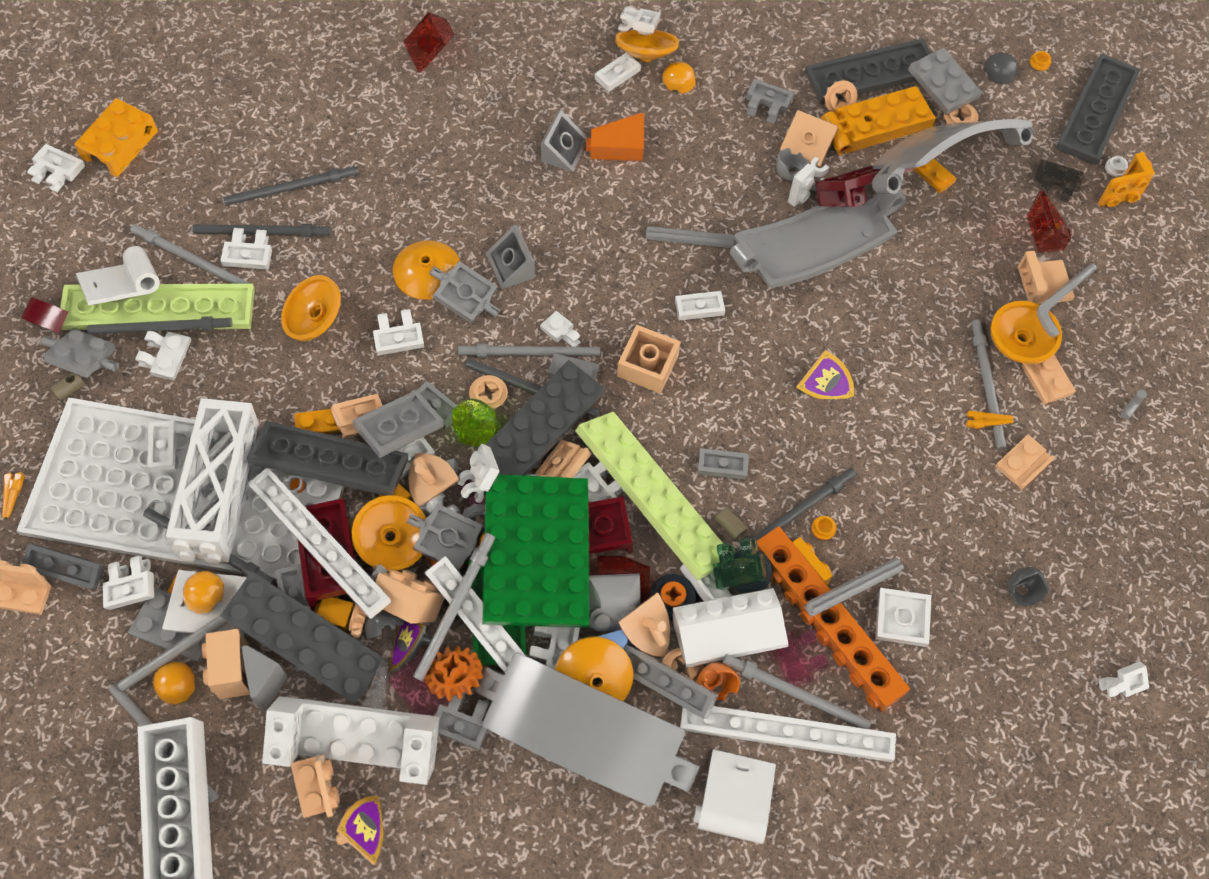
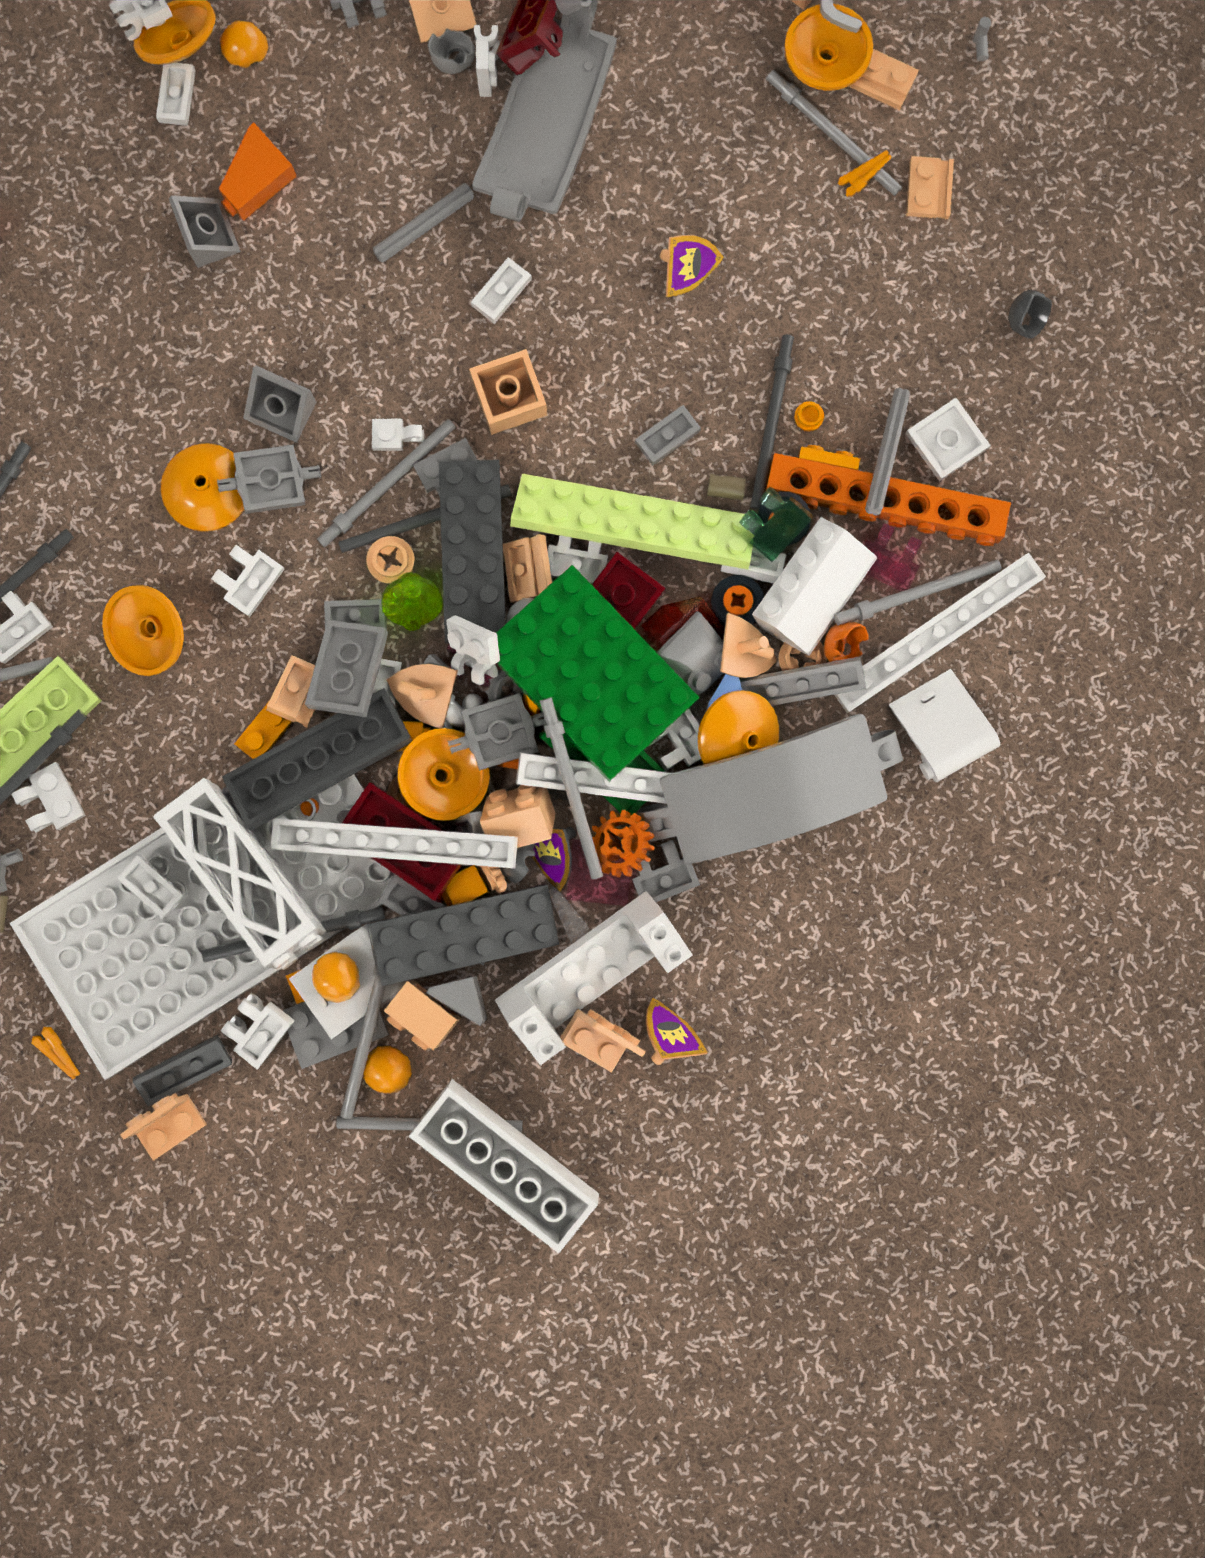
camera: 40 degrees left, 20 degrees up
(1129, 681) = (1180, 327): white plate -> none

